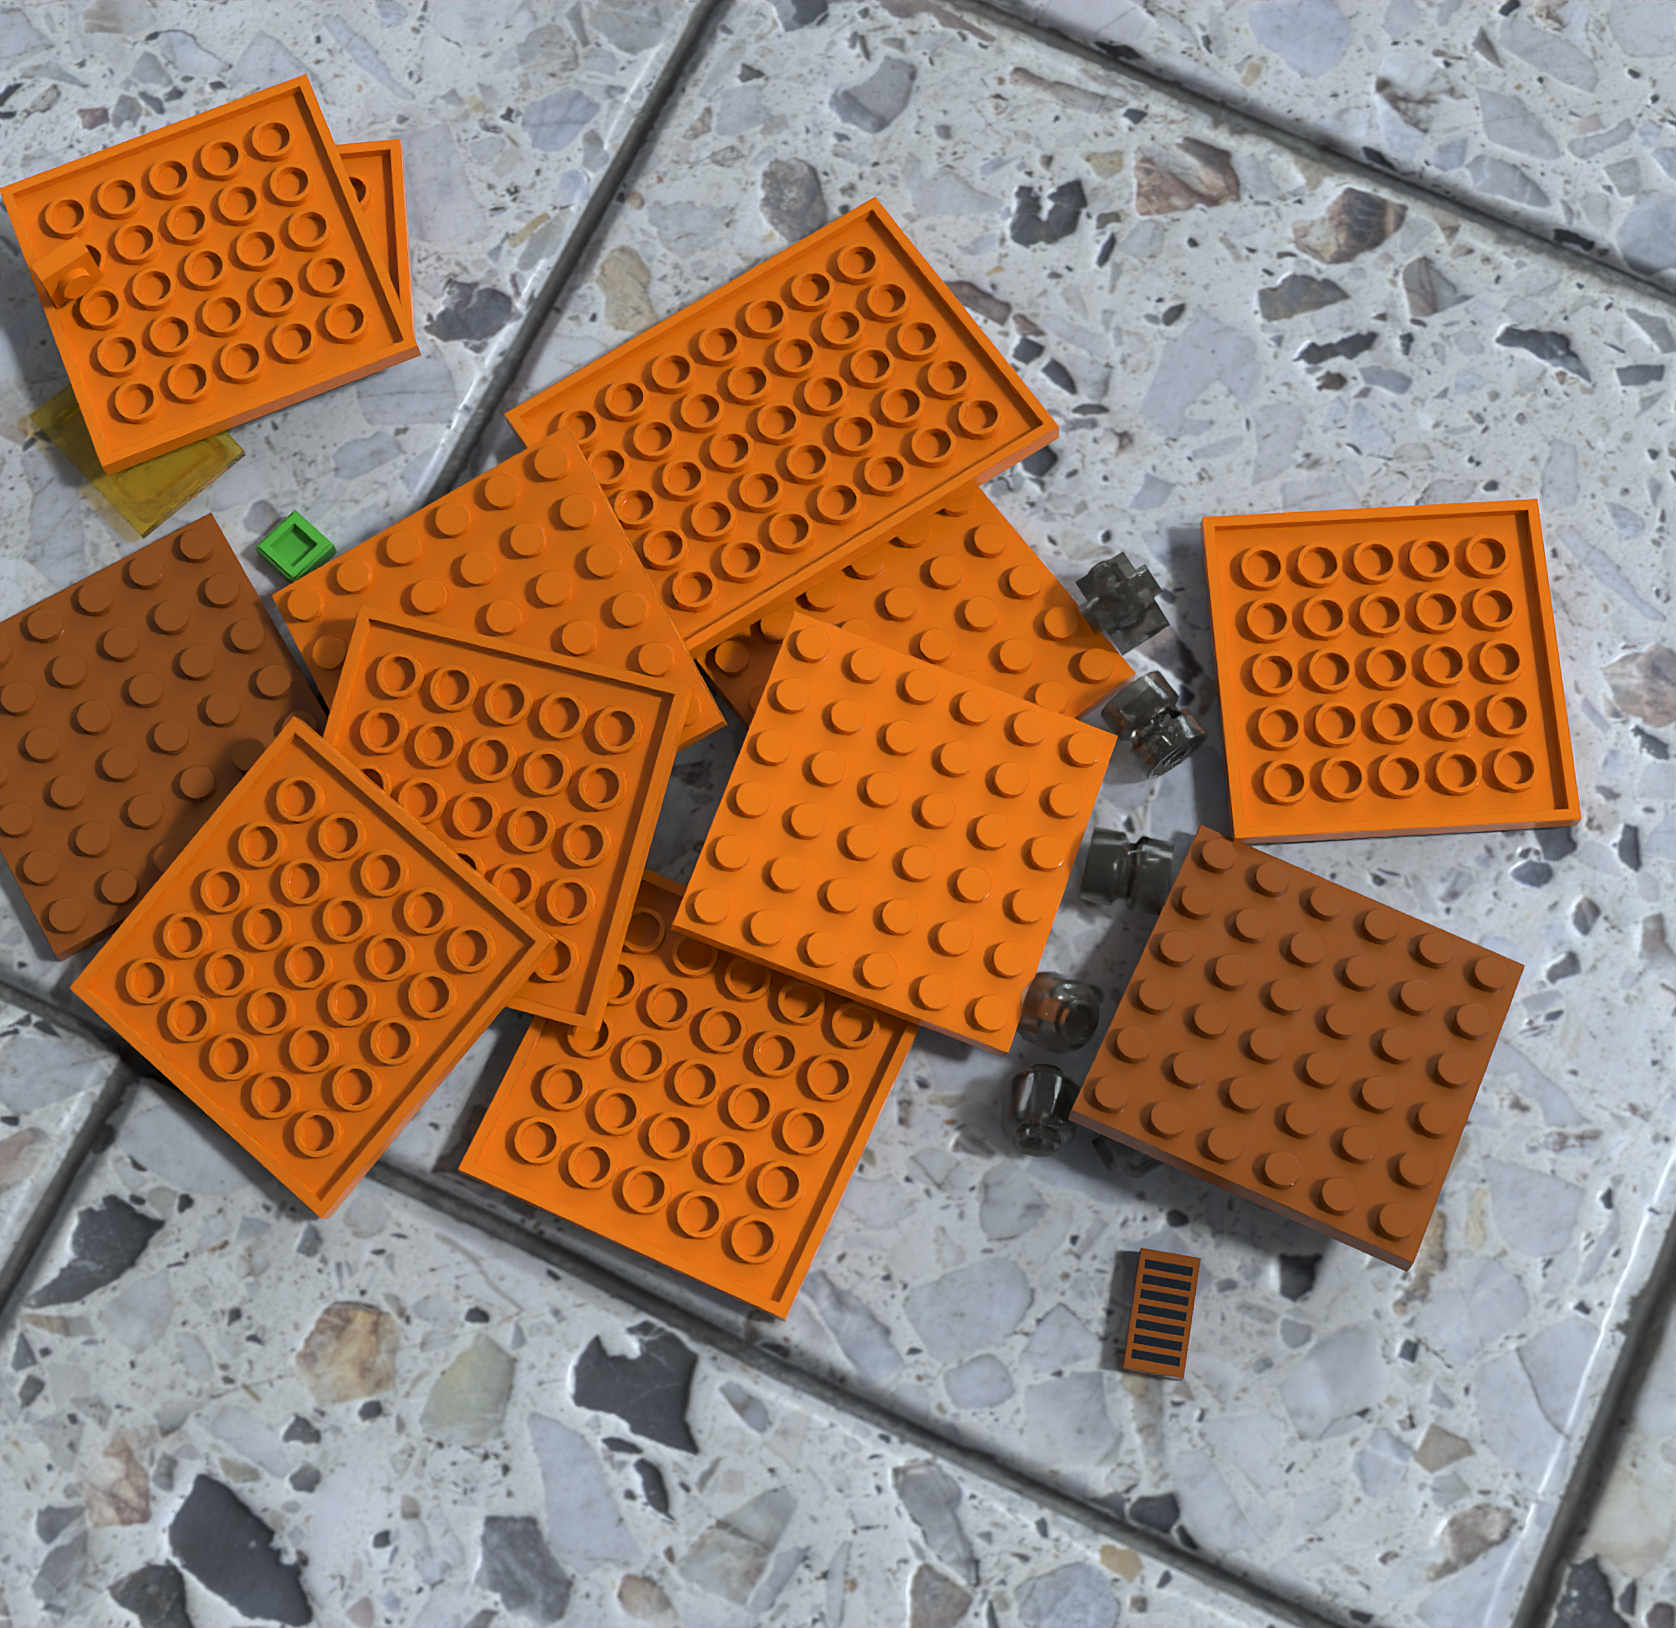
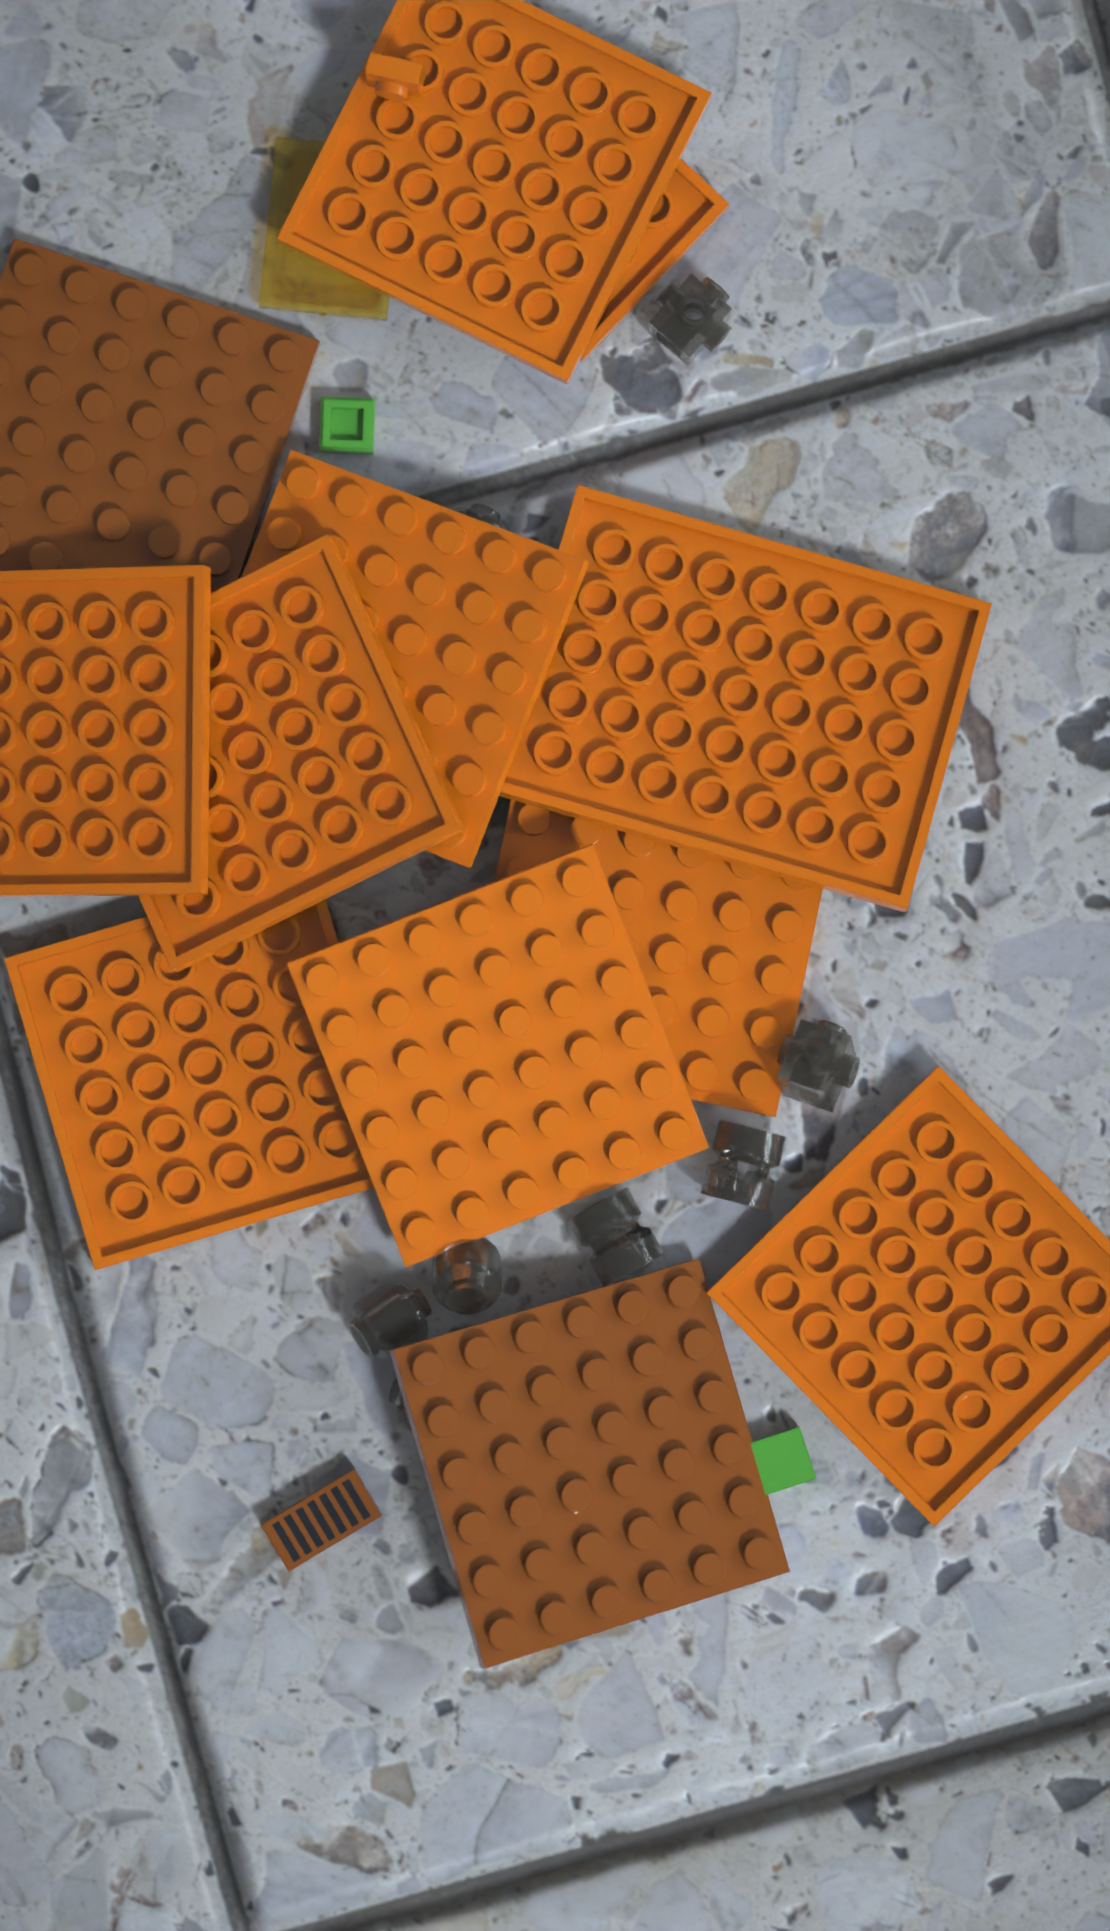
camera: 40 degrees right, 15 degrees up
(458, 231) = (688, 336): none -> clear smoke brick
(1425, 895) = (782, 1460): none -> bright green tile

